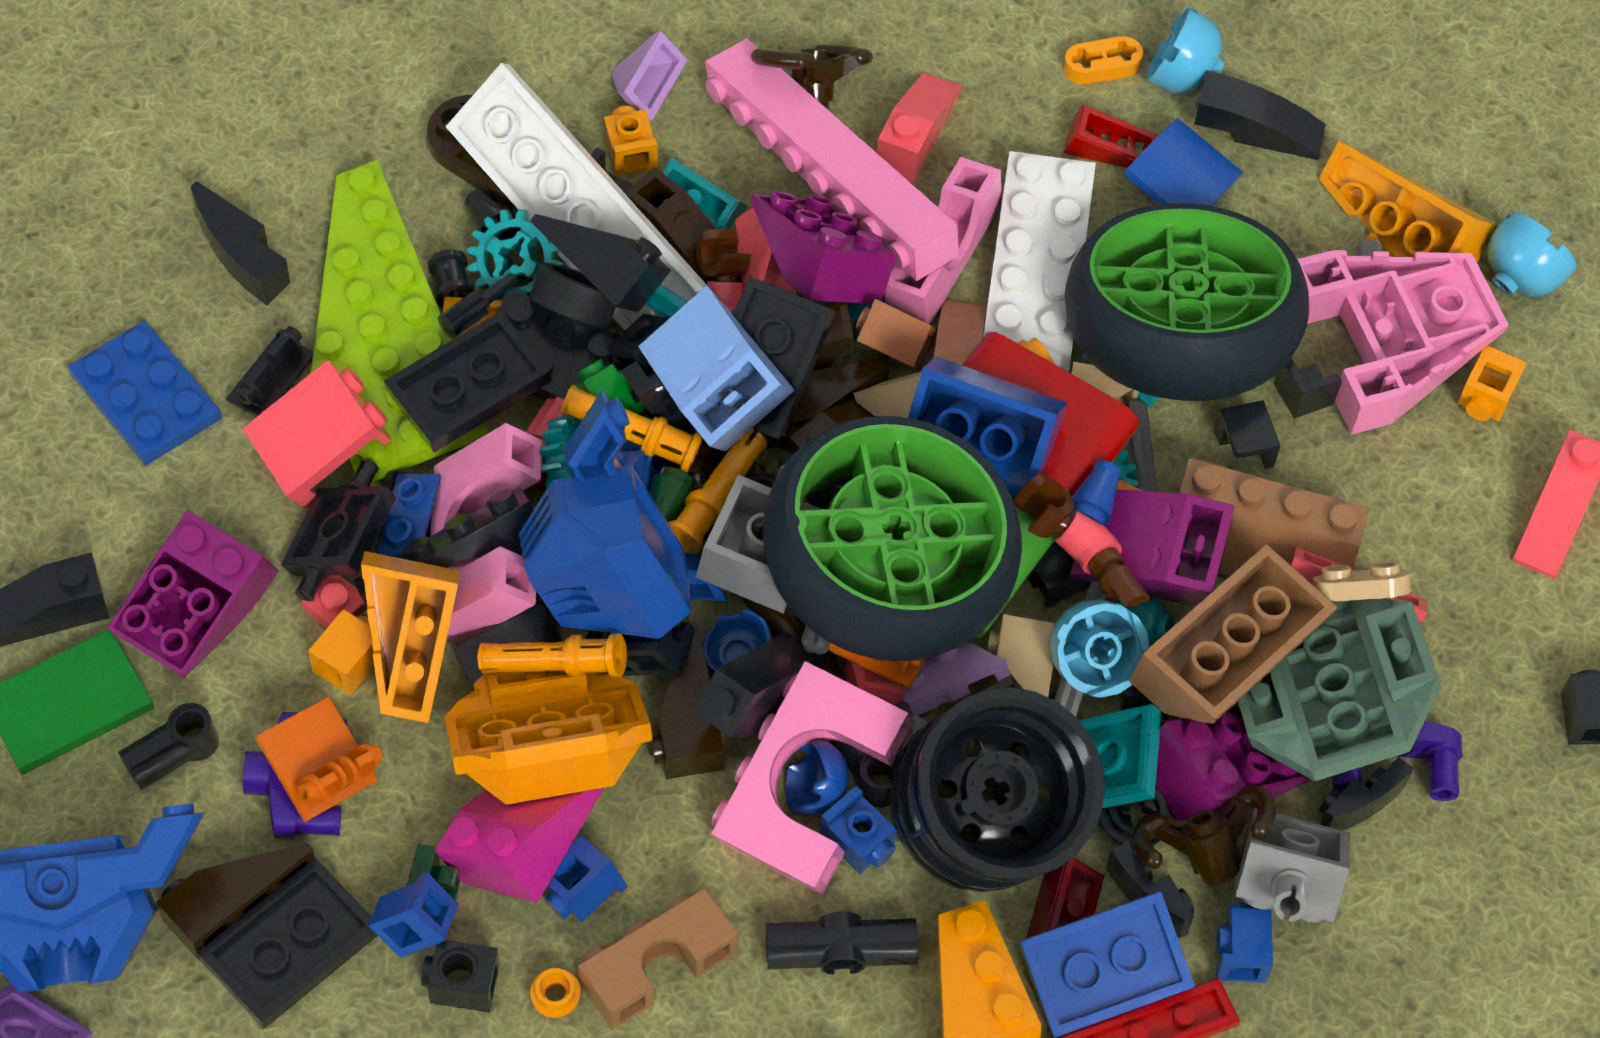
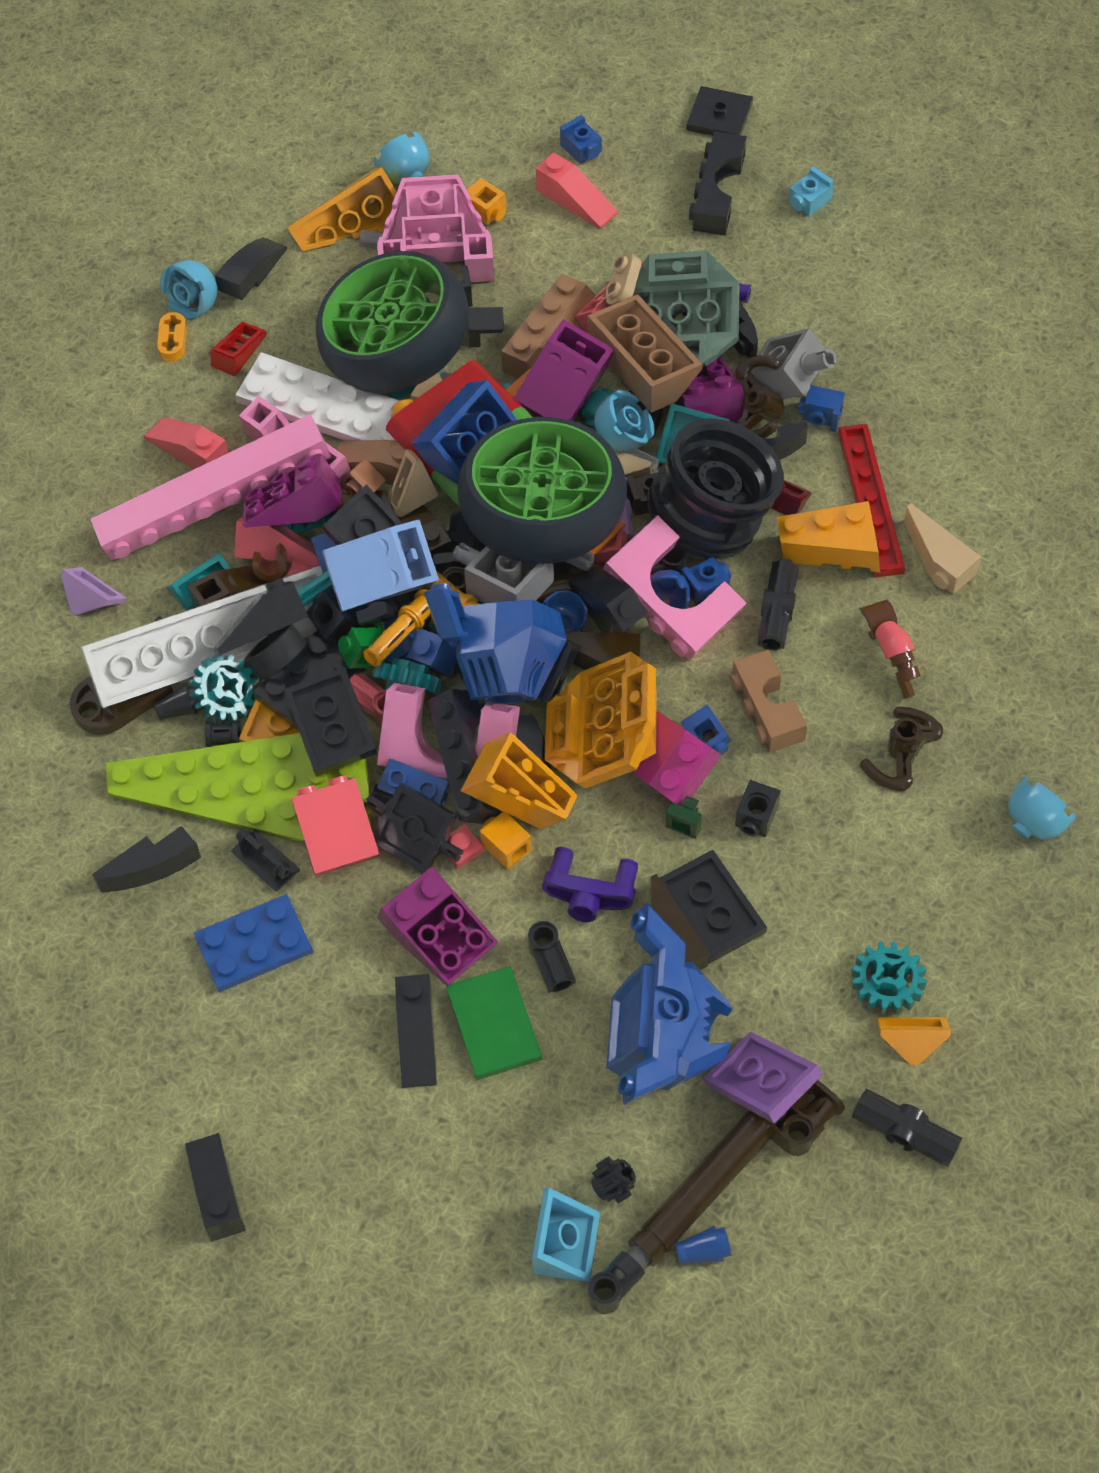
camera: 70 degrees left, 0 degrees up
(318, 758) = (593, 860): orange hinge -> none
(414, 916) = (718, 823): blue brick -> none
(473, 307) = (263, 715): black axle -> none
(555, 978) = (779, 755): light orange plate -> none
(573, 656) = (559, 694): light orange pin -> none
(628, 134) = (142, 607): light orange brick -> none
(817, 67) = (127, 481): dark brown piece -> none
(1080, 537) = (563, 401): reddish brown piece -> none
(1097, 492) = (528, 394): blue cone -> none
(1106, 964) = (822, 469): blue plate -> none
(1182, 168) = (280, 312): blue slope -> none

